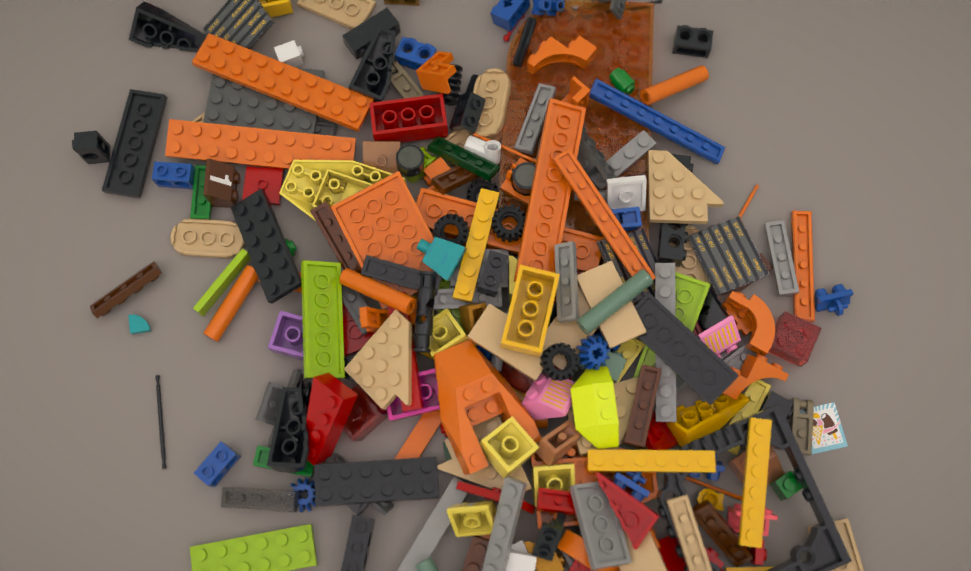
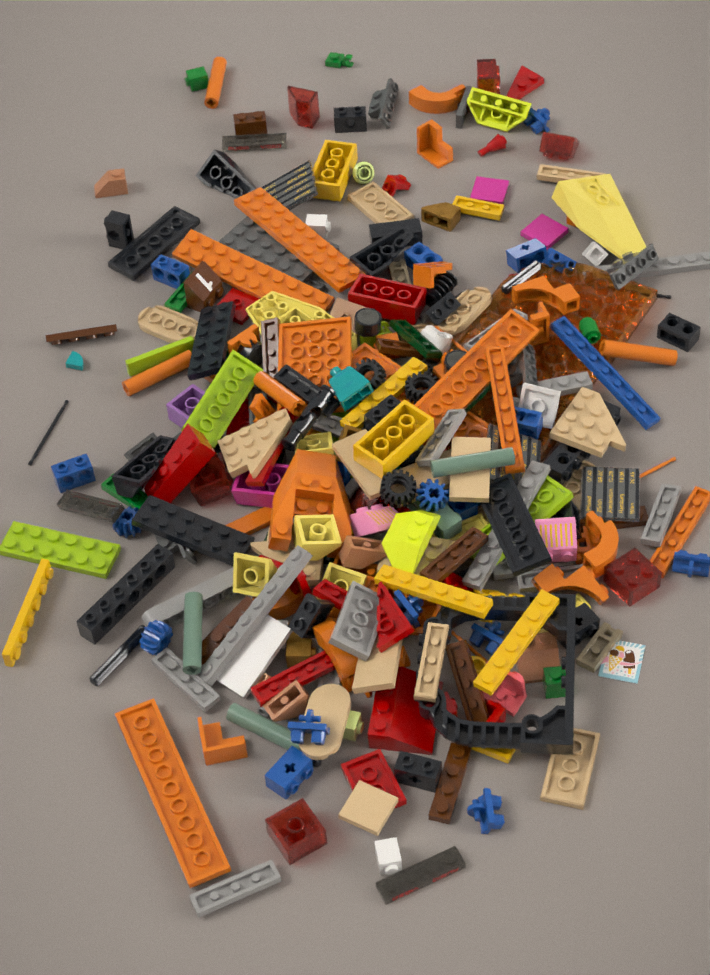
camera: 30 degrees right, 25 degrees down
(47, 87) = (111, 184): none -> nougat slope
(307, 240) = (248, 344): none -> piece

